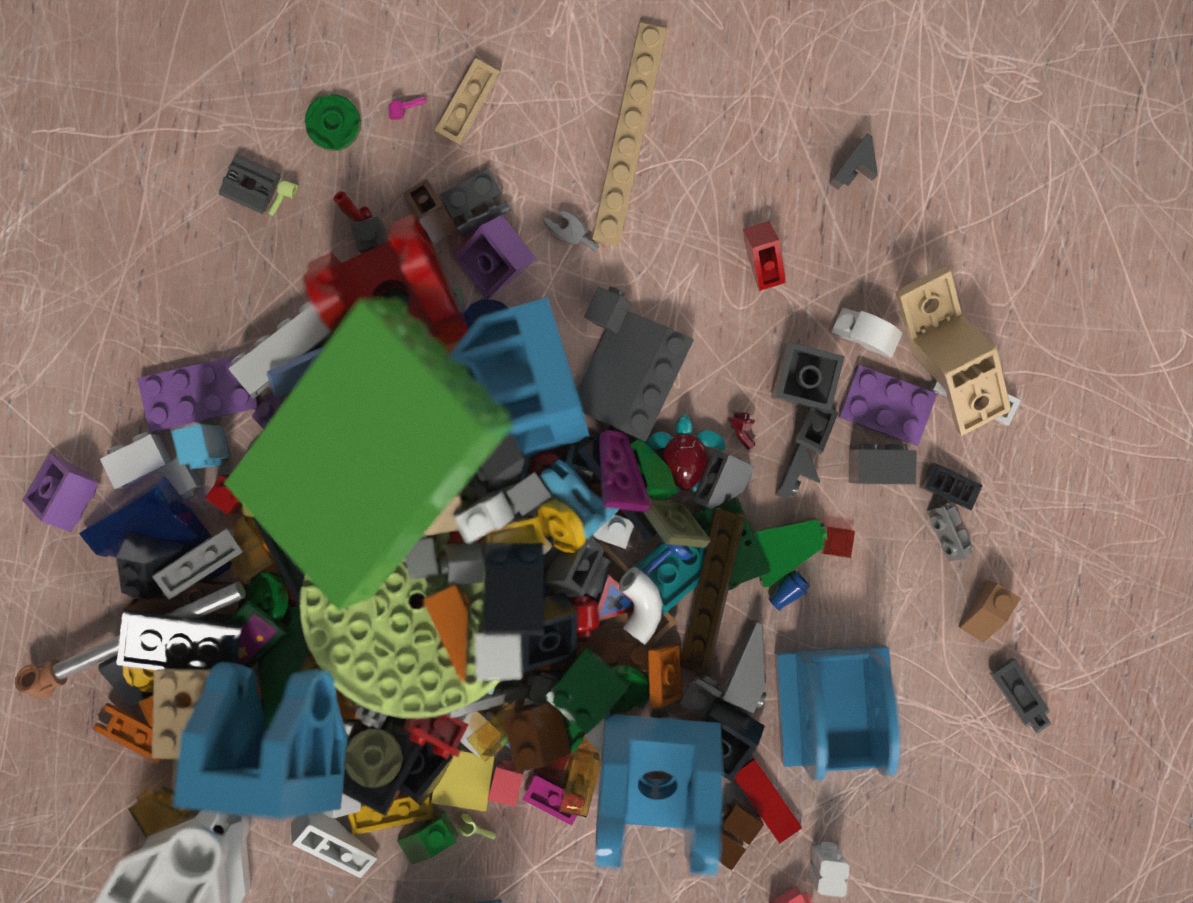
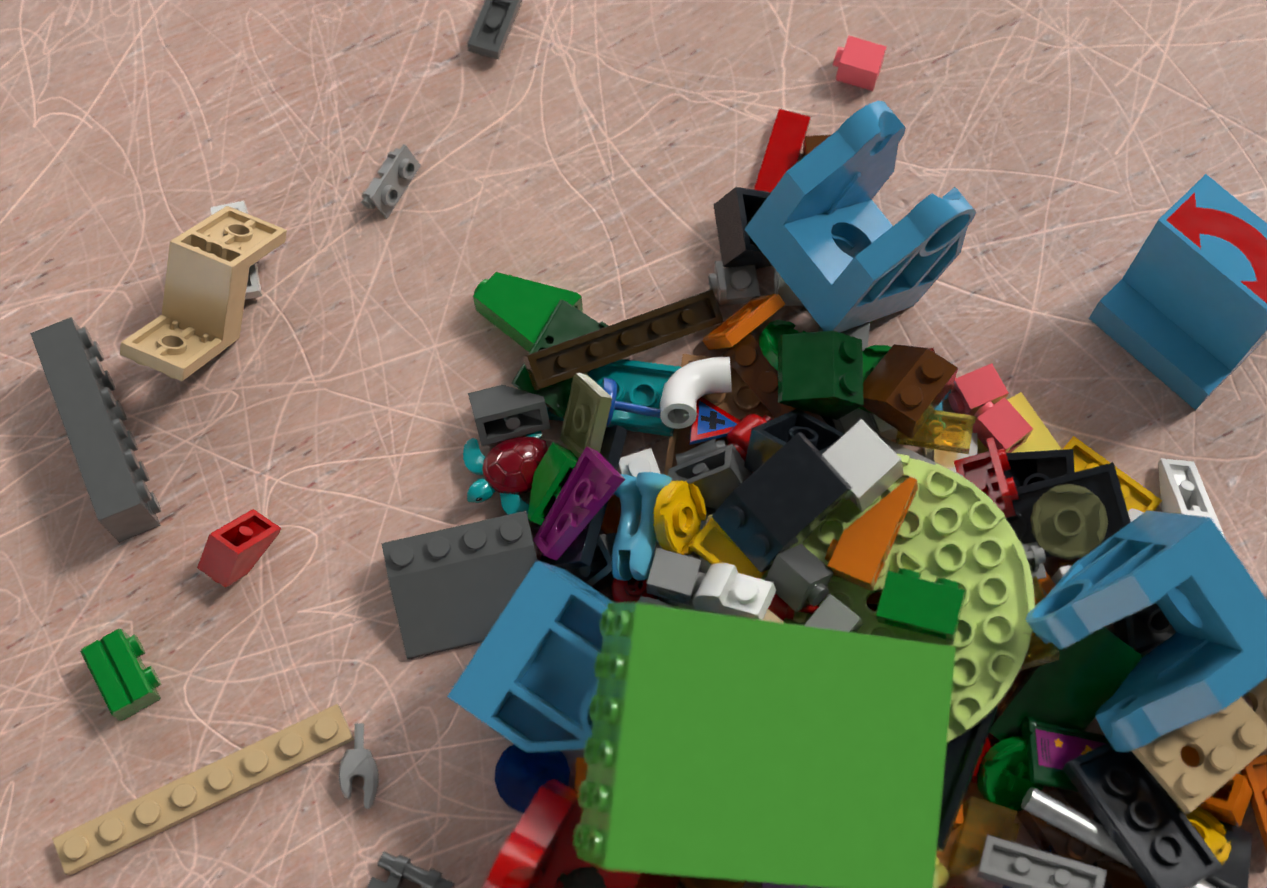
camera: 125 degrees left, 20 degrees down
(388, 620) = (921, 604): none -> green brick
(429, 838) = (1096, 423): green slope -> none
(470, 775) = (1002, 424): none -> coral brick
(472, 828) = (1049, 394): yellowish green hand -> none
(494, 256) = (450, 826): medium lavender slope -> none
(547, 797) = (952, 336): dark pink plate -> none
(580, 782) = (914, 321): clear yellow slope -> none
(608, 309) = (415, 659): dark grey brick -> none
(737, 132) = (121, 673): none -> green brick
(741, 423) = (434, 439): dark red plate -> none
(747, 678) = (678, 255): light grey slope -> none
(789, 590) = (567, 277): blue cone -> none
(799, 464) = (434, 358): dark grey slope -> none
(807, 376) = (336, 410): dark grey slope -> none
(816, 429) = (382, 366): dark grey slope -> none
(829, 870) = (795, 54): white brick -> none
(837, 710) = (640, 140): dark azure piece -> none
(839, 542) = (479, 267): clear red tile -> none
(861, 159) = (65, 528): dark grey slope -> none
(868, 331) = (245, 392): white brick -> none
(886, 466) = (373, 277): dark grey brick -> none
(887, 405) = (308, 323): medium lavender plate -> none
(911, 220) = (96, 429): none -> dark grey brick
(931, 477) = (349, 233): black slope -> none
(989, 611) = (438, 95): medium nougat slope -> none

